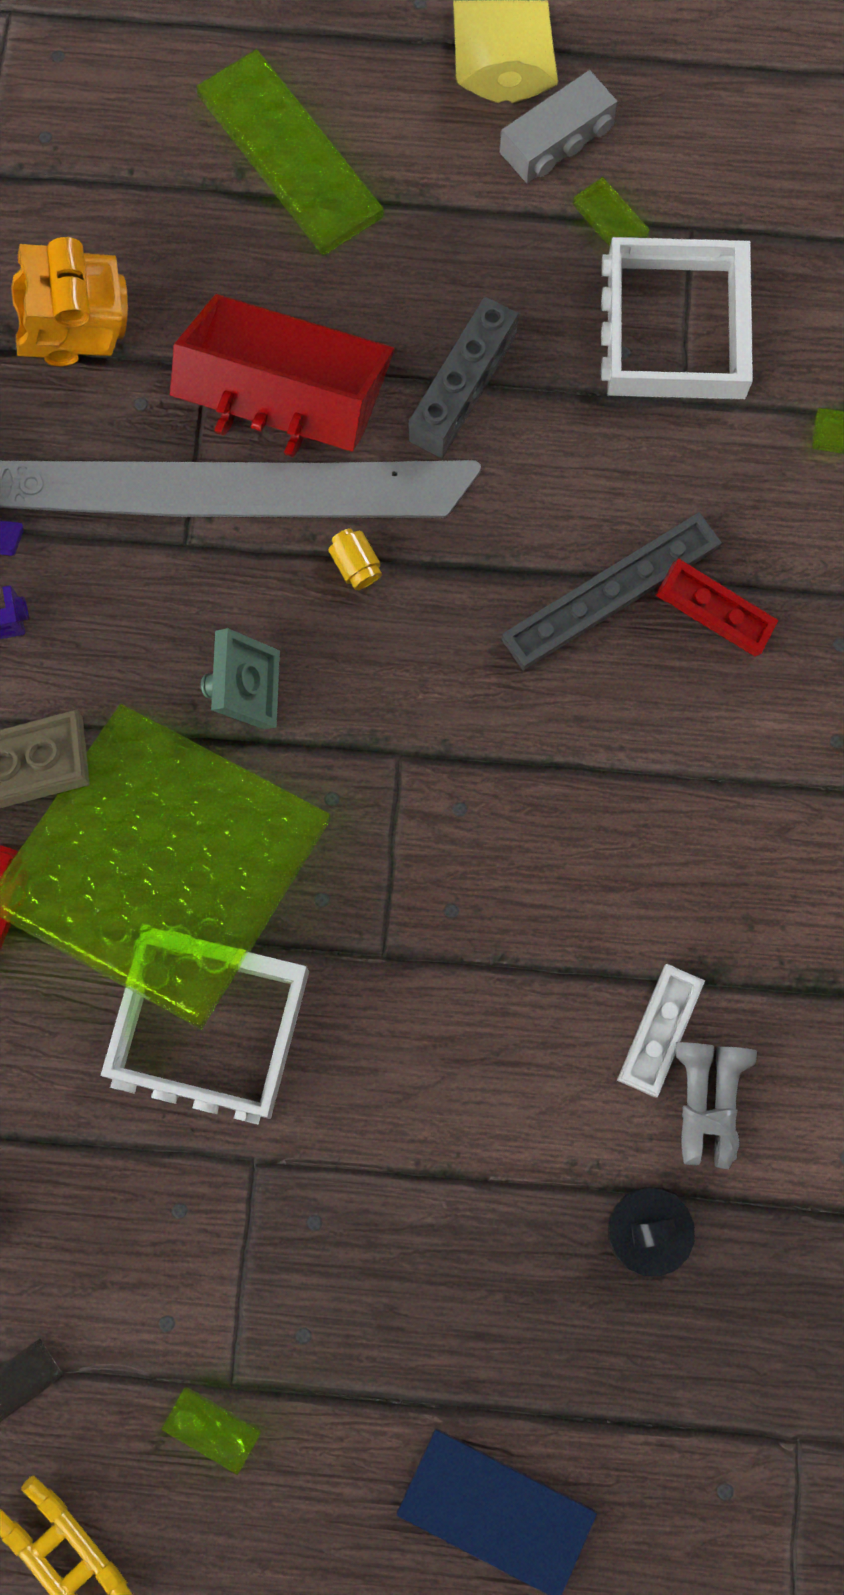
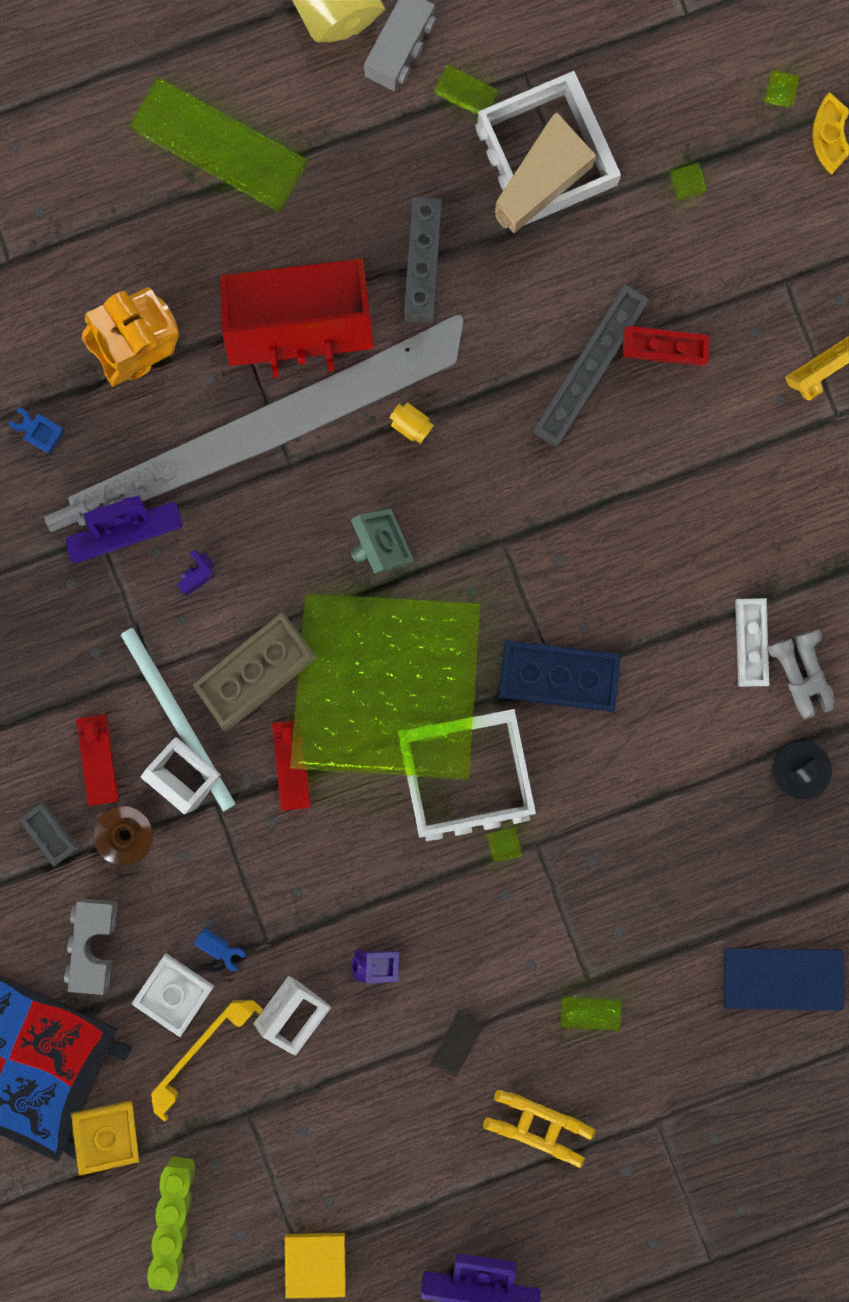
camera: 25 degrees left, 10 degrees up
(208, 1141) = (504, 844): none -> clear neon green plate
(389, 956) = (559, 676): none -> dark blue tile
(655, 336) = (546, 172): none -> tan slope

